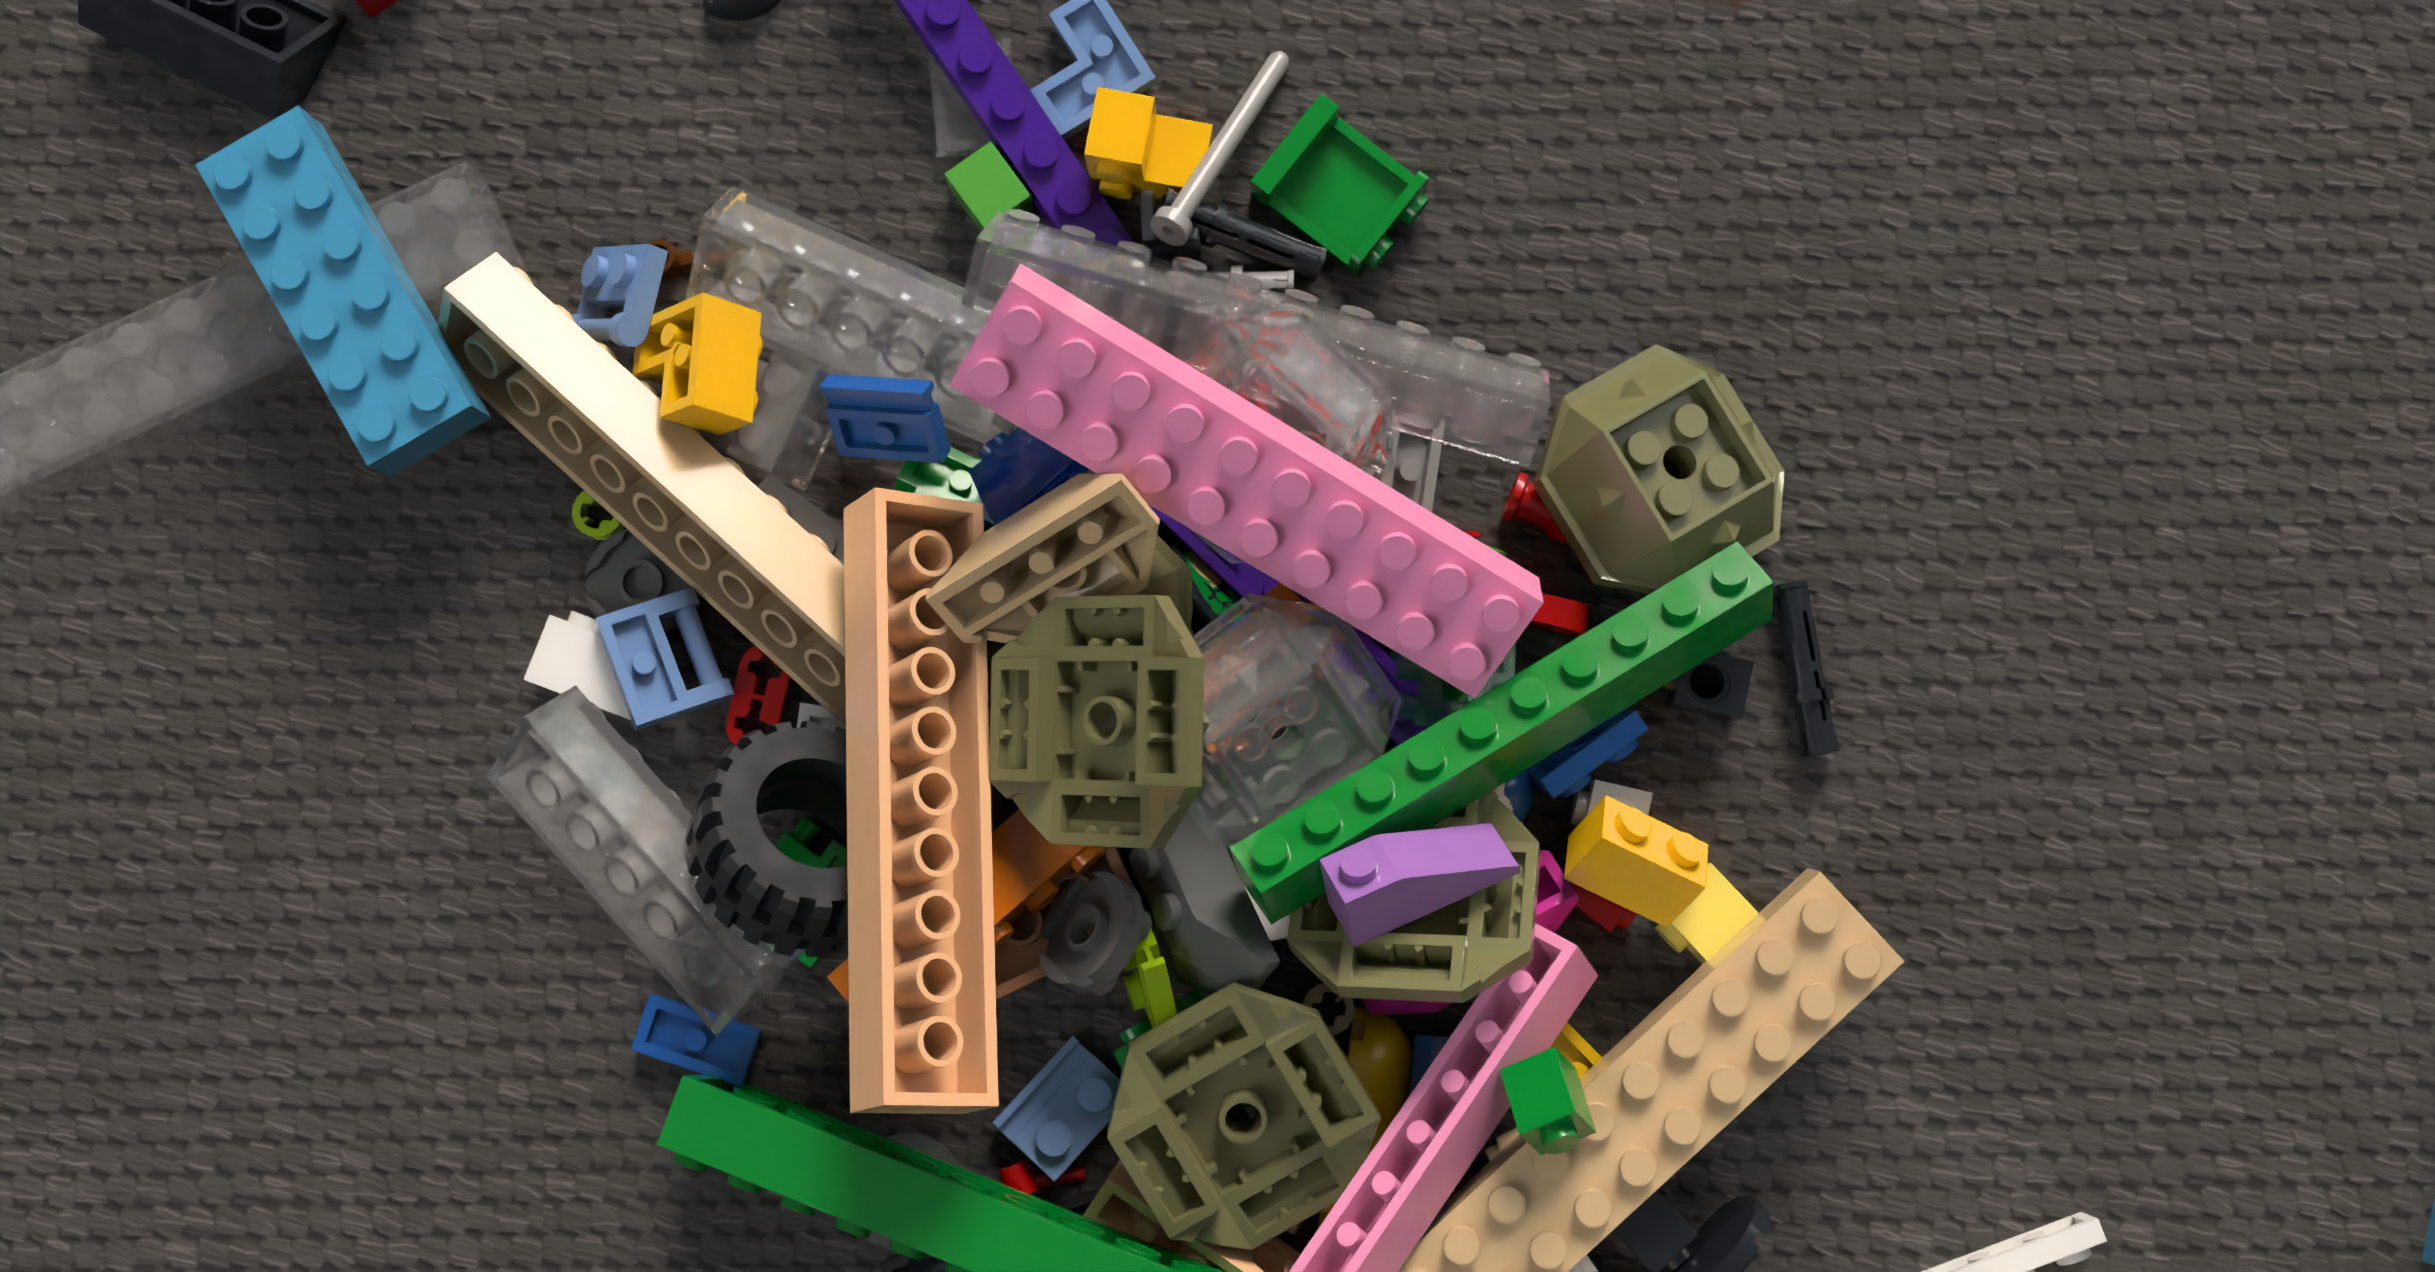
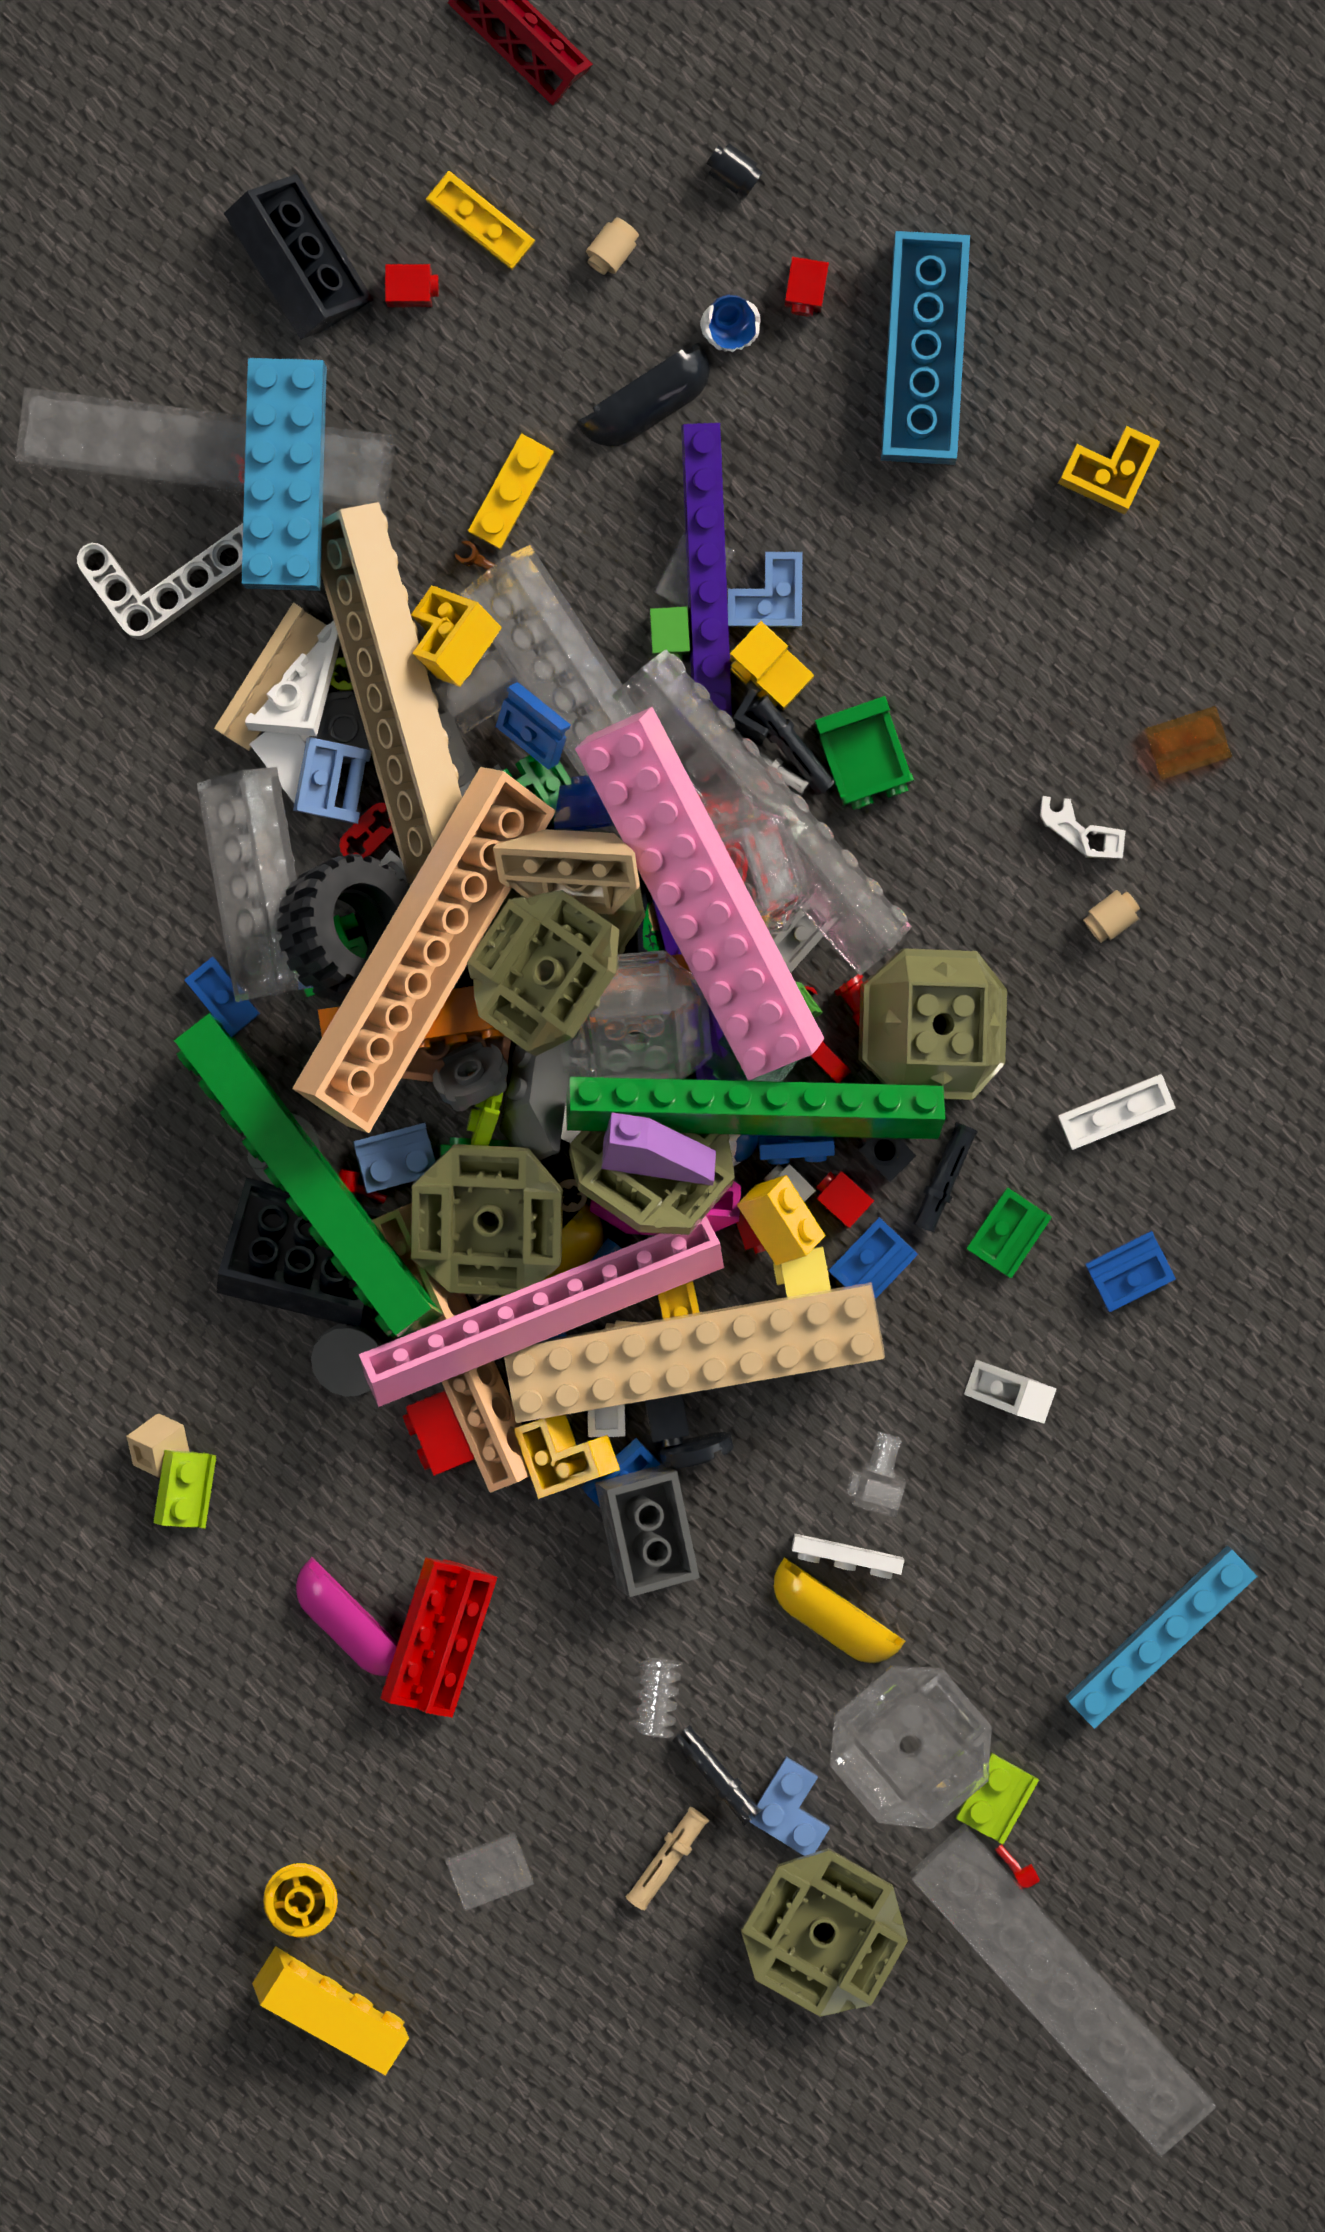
camera: 25 degrees right, 5 degrees up
(281, 577) = (178, 582): none -> white beam
(501, 575) = (292, 637): none -> tan fence
(553, 568) = (300, 697): none -> white wing
(620, 279) = (438, 555): medium blue plate -> none
(672, 146) = (511, 491): none -> yellow plate
(1173, 222) = (756, 720): light grey bar -> none
(1548, 1102) = (651, 1312): green brick -> none
(1677, 121) = (1065, 826): none -> white piece
(1691, 780) = (843, 1197): none -> red brick
(1782, 835) = (874, 1257): none -> blue plate
(1796, 193) = (1112, 916): none -> tan brick
(1936, 687) = (1009, 1232): none -> green plate
(1970, 441) = (1116, 1111): none -> white plate
(1991, 1138) = (876, 1484): none -> clear brick
(2079, 897) = (1010, 1391): none -> white slope
(2128, 637) = (1130, 1271): none -> blue plate

